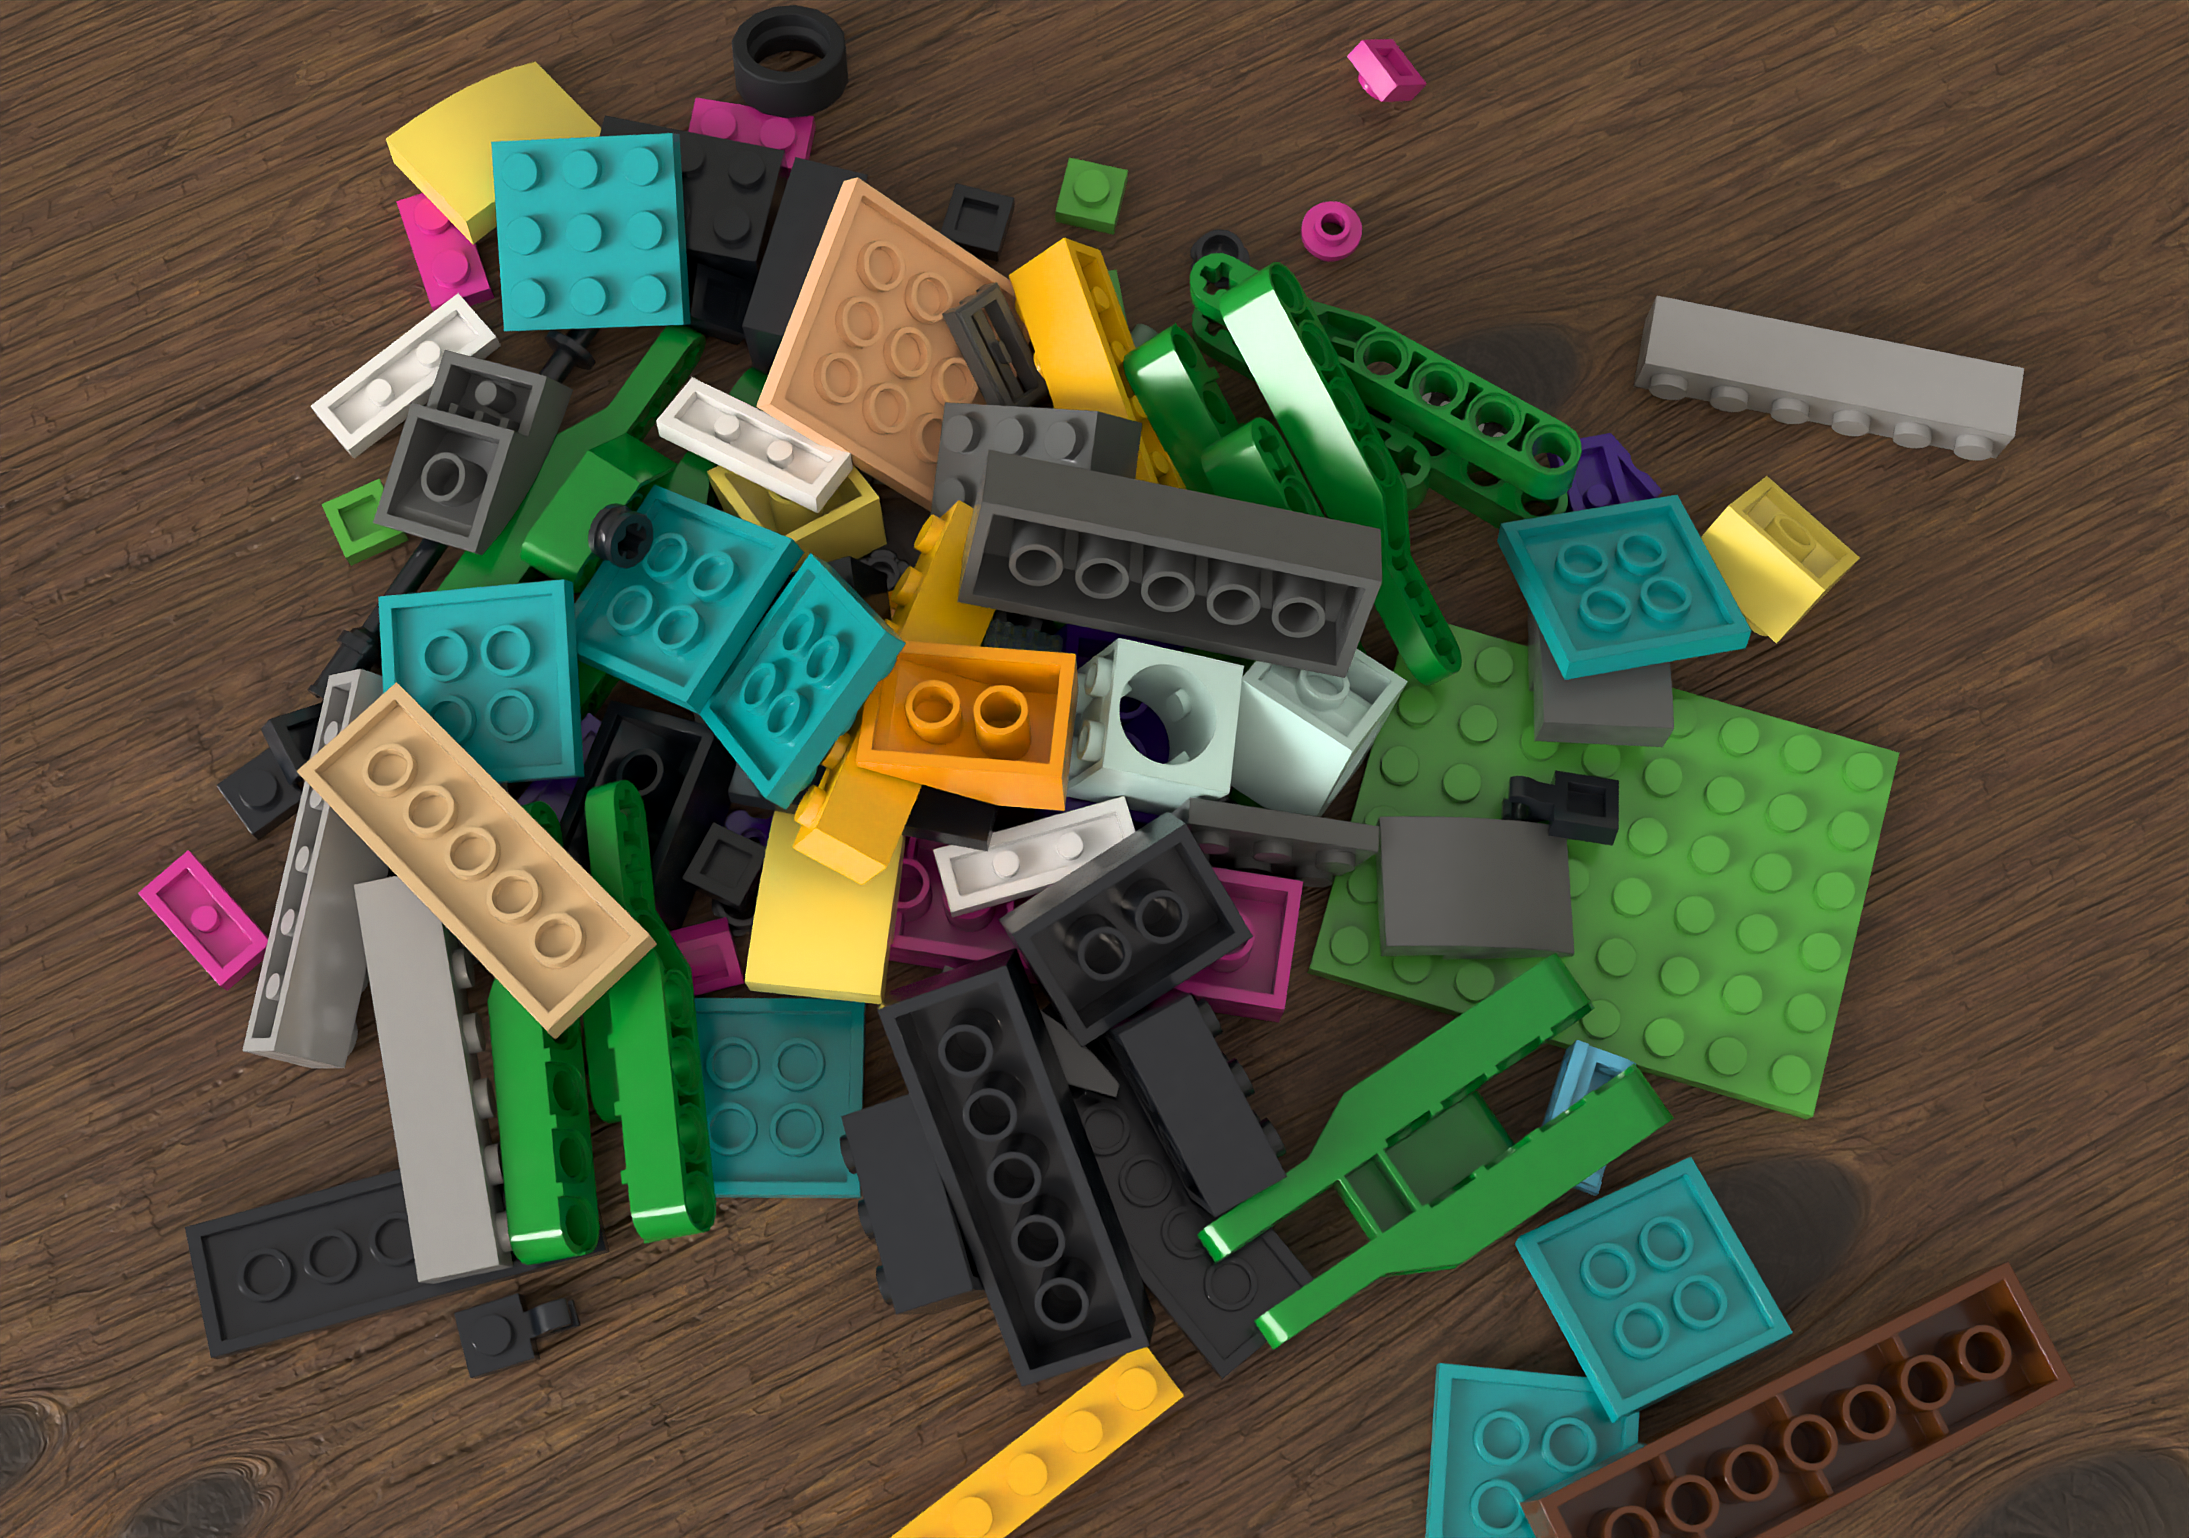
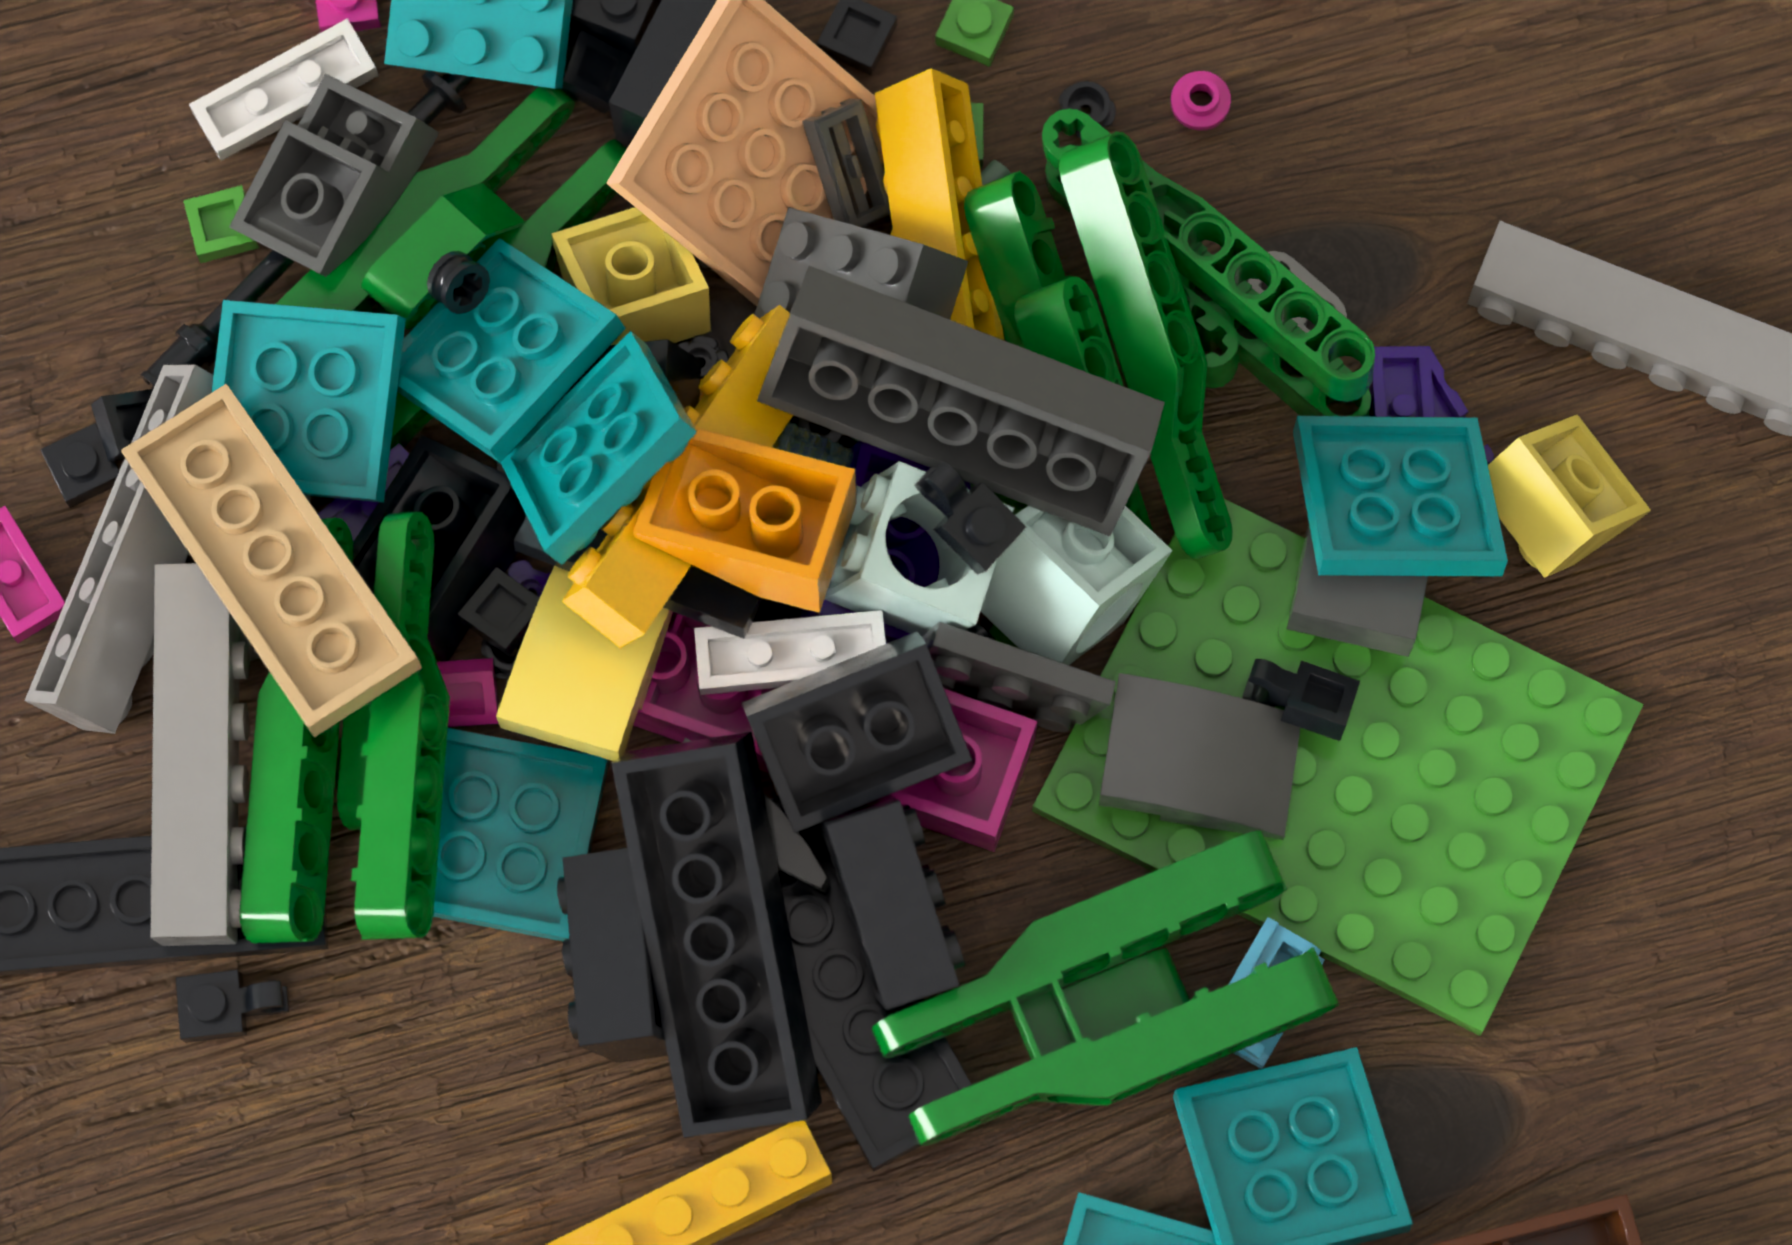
camera: 15 degrees right, 0 degrees up
(753, 445) = (599, 217): white plate -> none
(1209, 684) = (974, 521): none -> black plate

